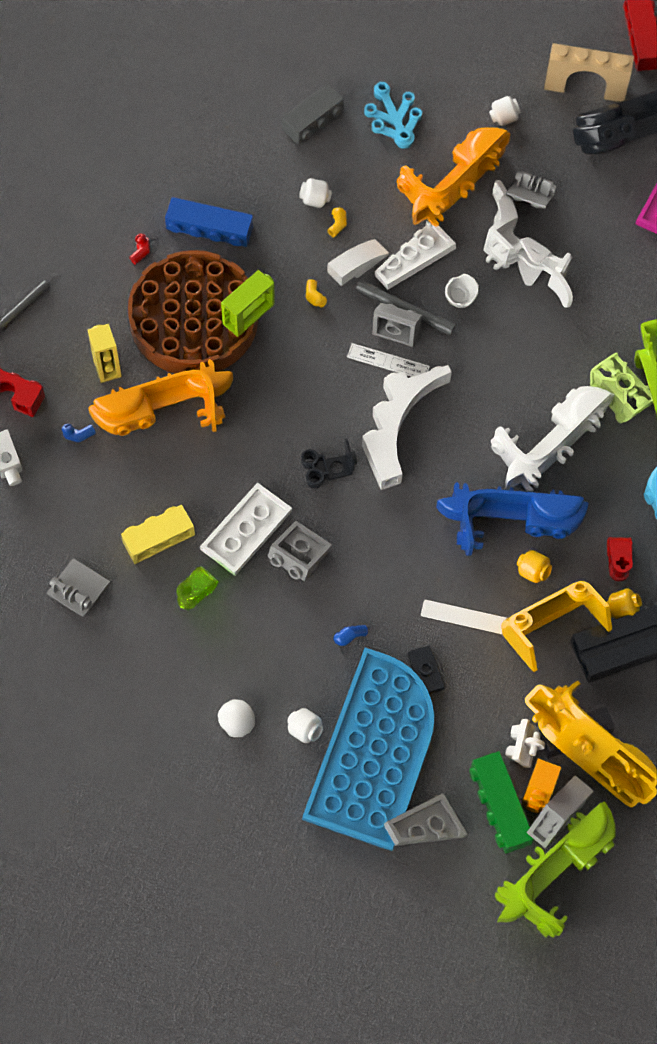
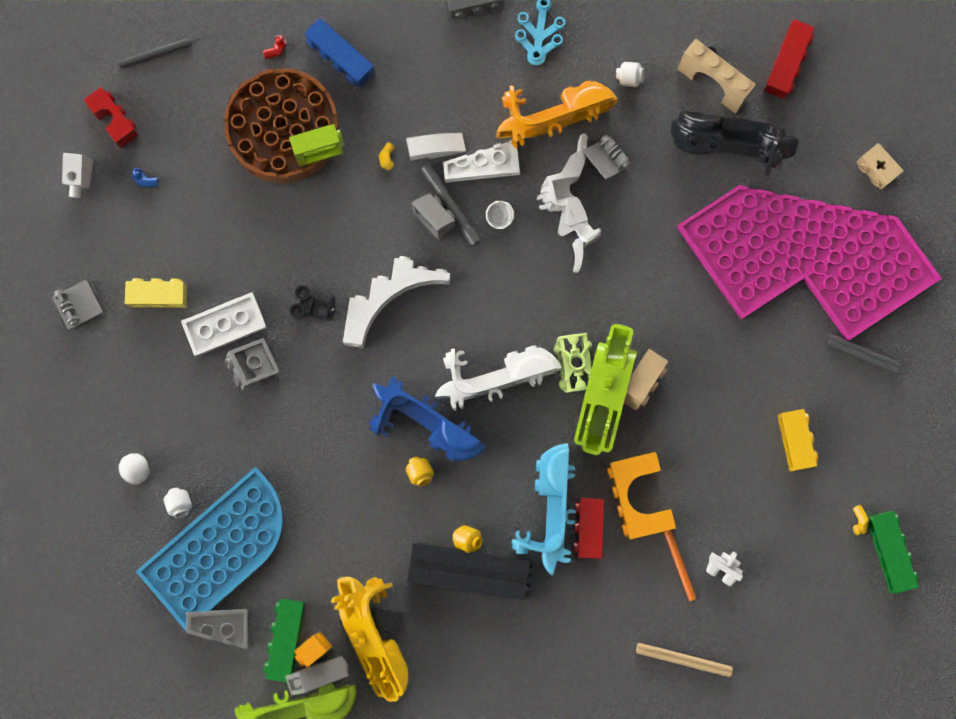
camera: 30 degrees right, 15 degrees up
(104, 352) = (190, 126): light yellow brick -> none
(134, 406) = (192, 184): light orange piece -> none
(197, 585) = (162, 351): clear neon green piece -> none
(315, 193) = (436, 70): white head -> none
(340, 221) = (443, 103): yellow arm -> none
(349, 633) = (248, 449): blue arm -> none
(386, 360) = (412, 242): white sticker -> none
(426, 668) = (293, 507): black plate -> none
(462, 616) = (347, 480): white sticker -> none
(526, 745) = (325, 610): white hips -> none
(548, 609) = (402, 510): yellow windscreen -> none
(619, 557) = (491, 495): red piece -> none

